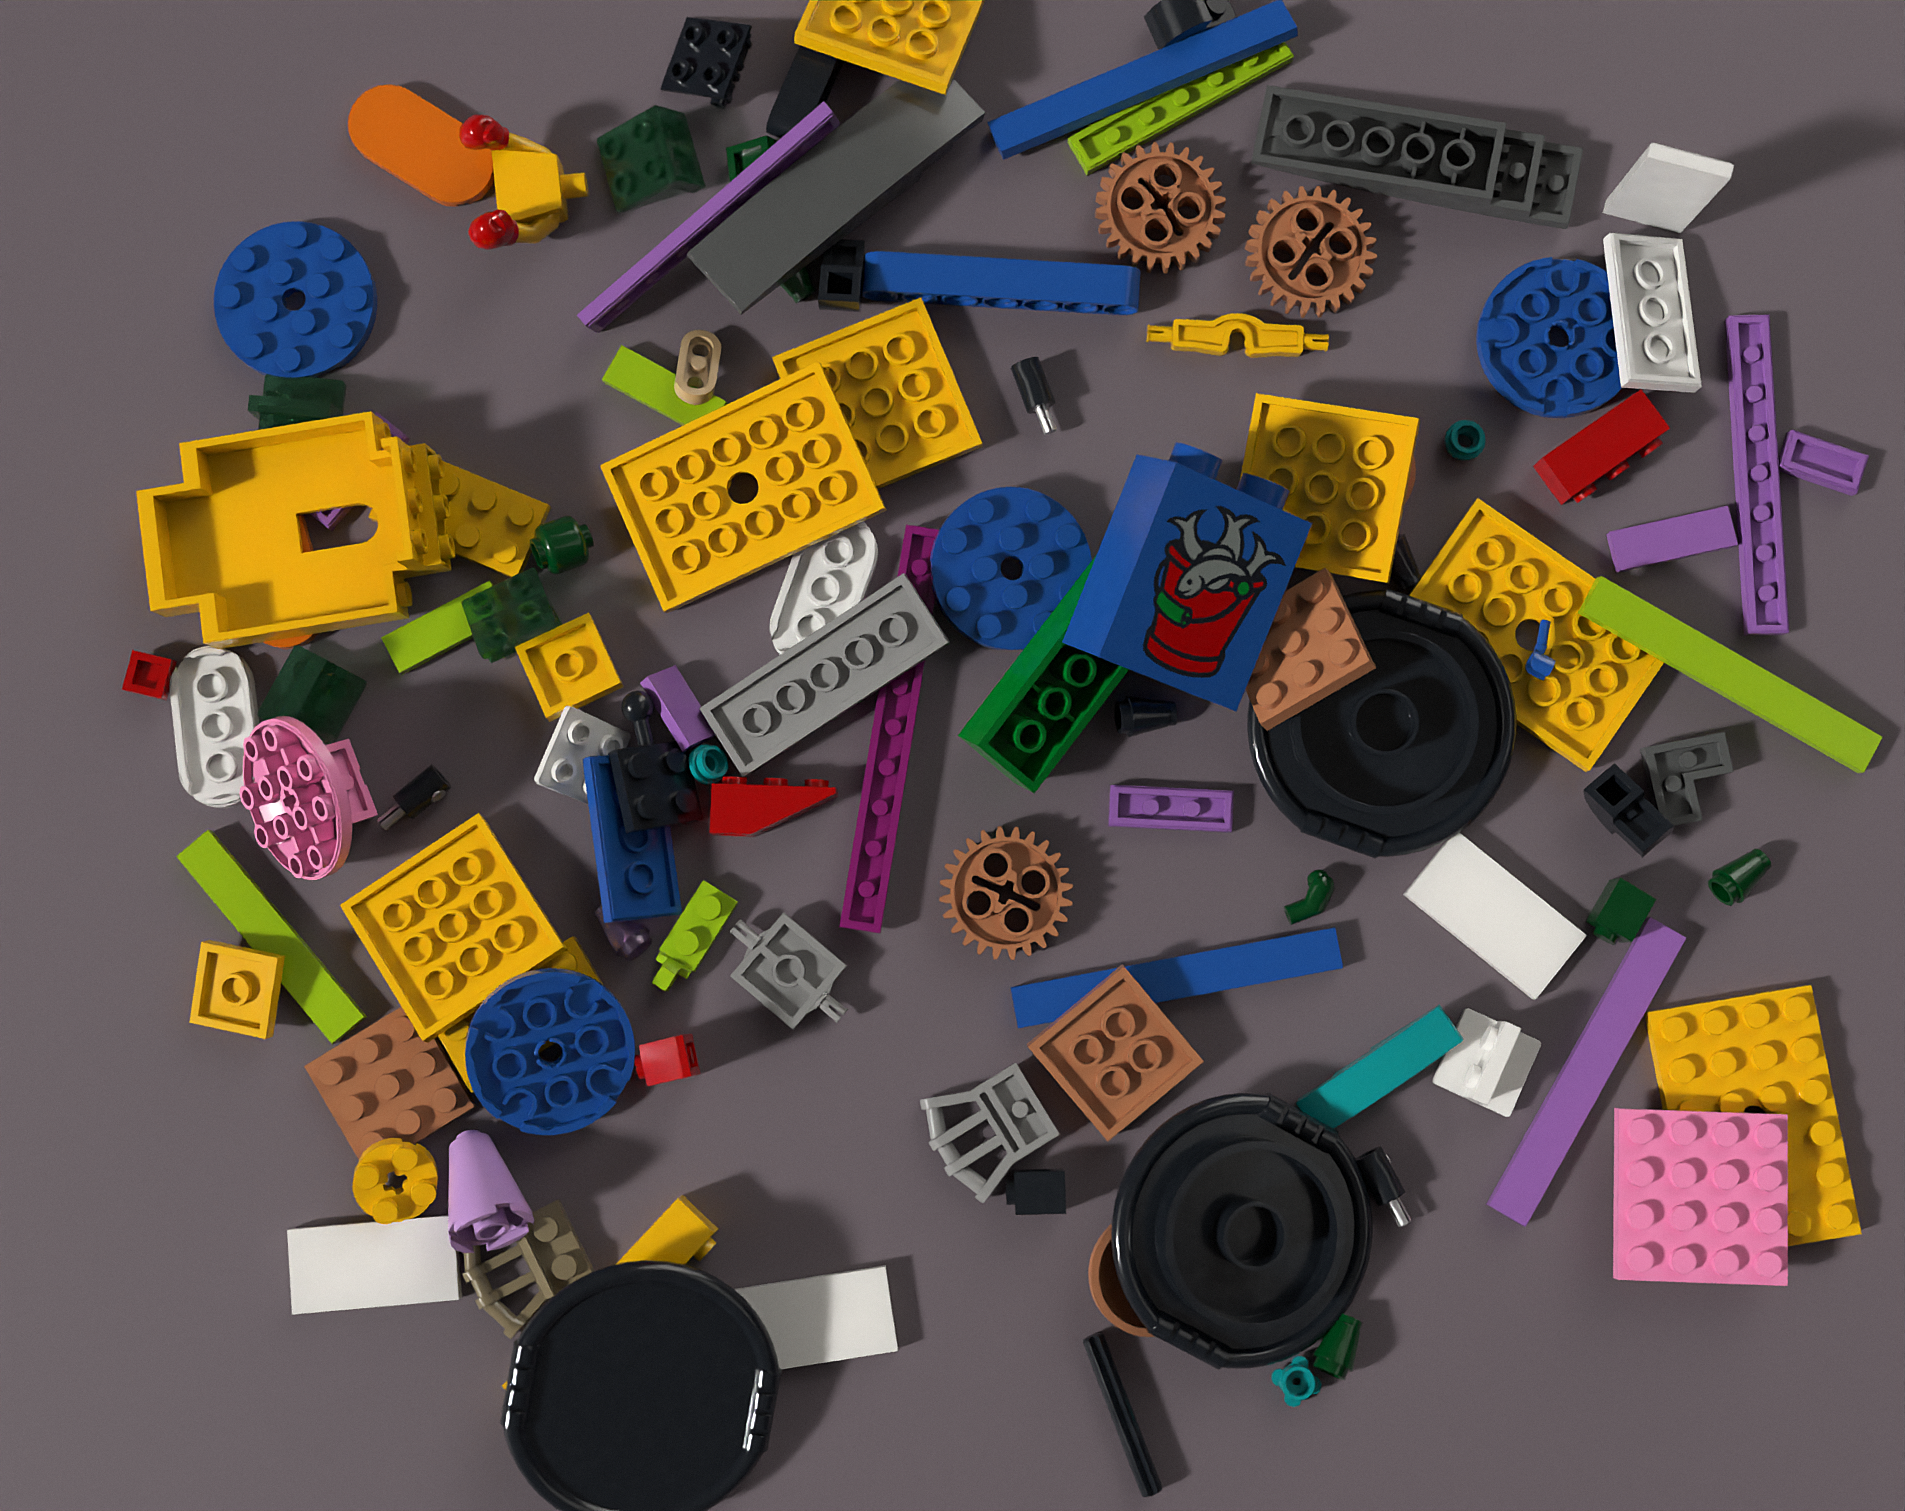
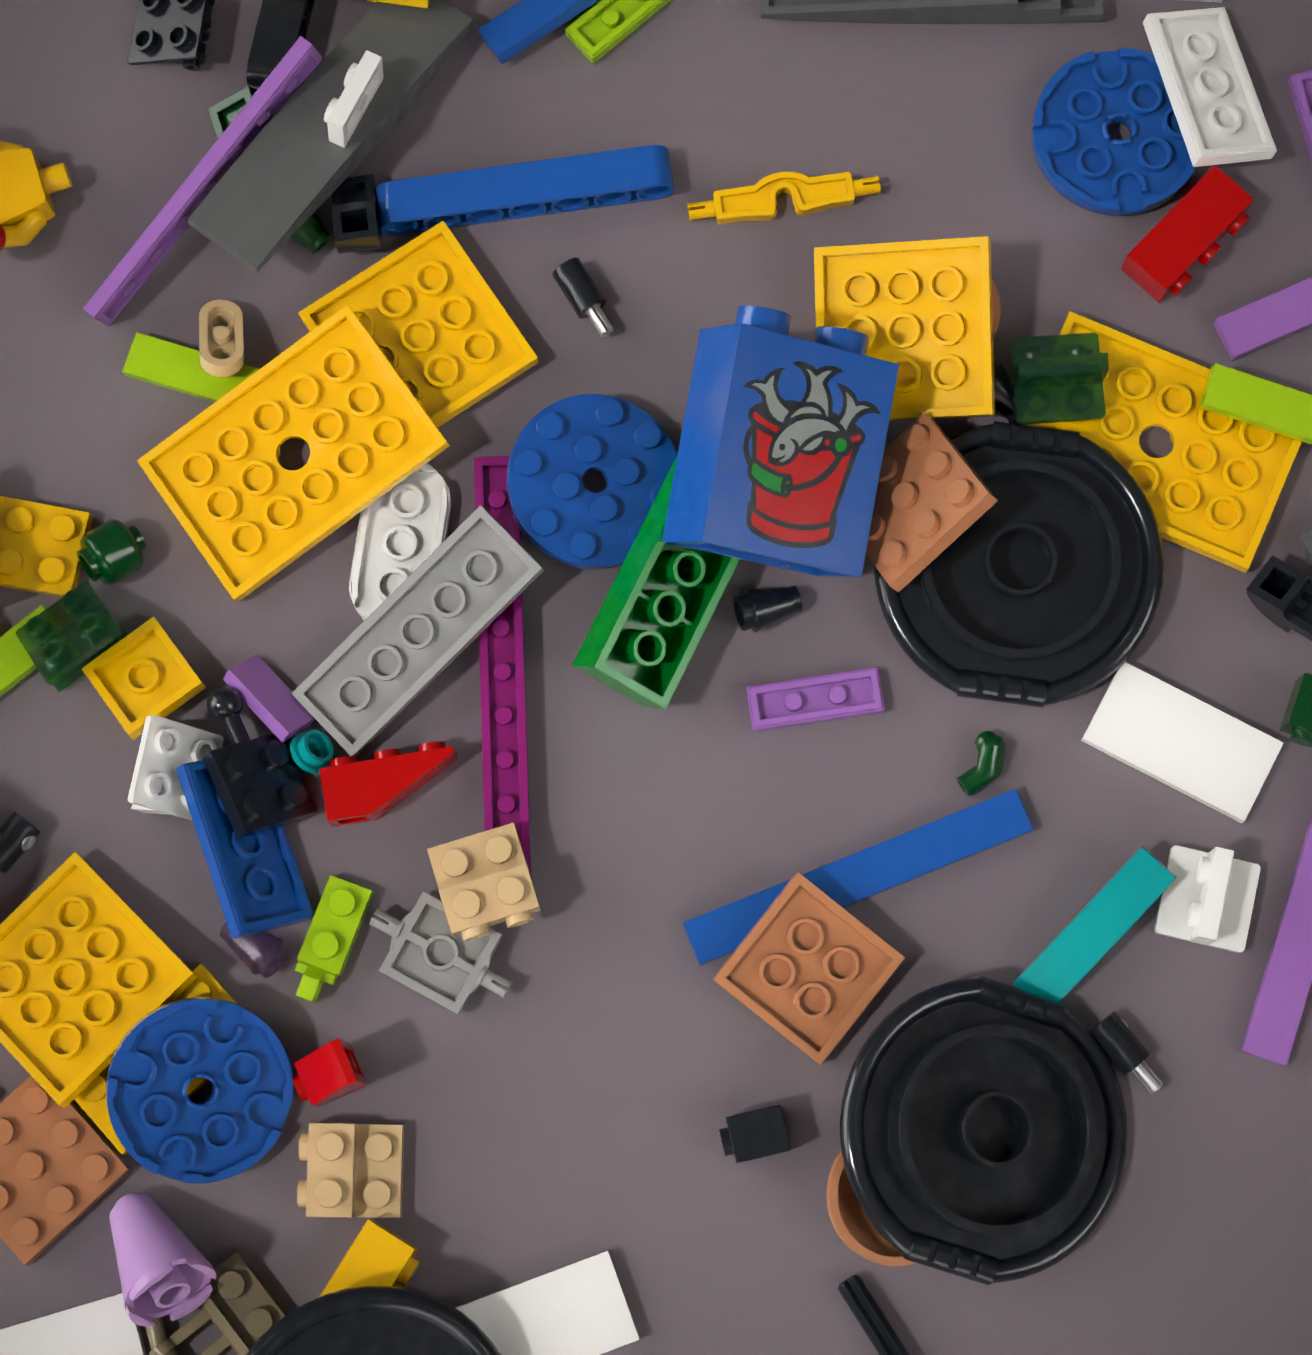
camera: 10 degrees left, 5 degrees down
(402, 1158) = (53, 1292): yellow plate -> none
(649, 157) = (128, 133): clear green bracket -> none
(672, 1149) = (352, 1170): none -> tan plate
(839, 916) = (484, 882): none -> tan plate
(851, 181) = (360, 87): none -> white plate
(990, 927) = (647, 862): nougat gear -> none
(1013, 1115) = (711, 1055): light grey plate -> none
(1190, 189) = (703, 56): nougat gear -> none
(1296, 1393) = (1090, 1283): teal plate -> none
(1338, 1348) = (1114, 1238): dark green cone -> none
(1340, 271) = (876, 108): nougat gear -> none
(1454, 559) = (1058, 378): none -> clear green bracket
(1473, 432) = (1047, 244): teal plate -> none
(1538, 663) = (1170, 468): blue hand -> none

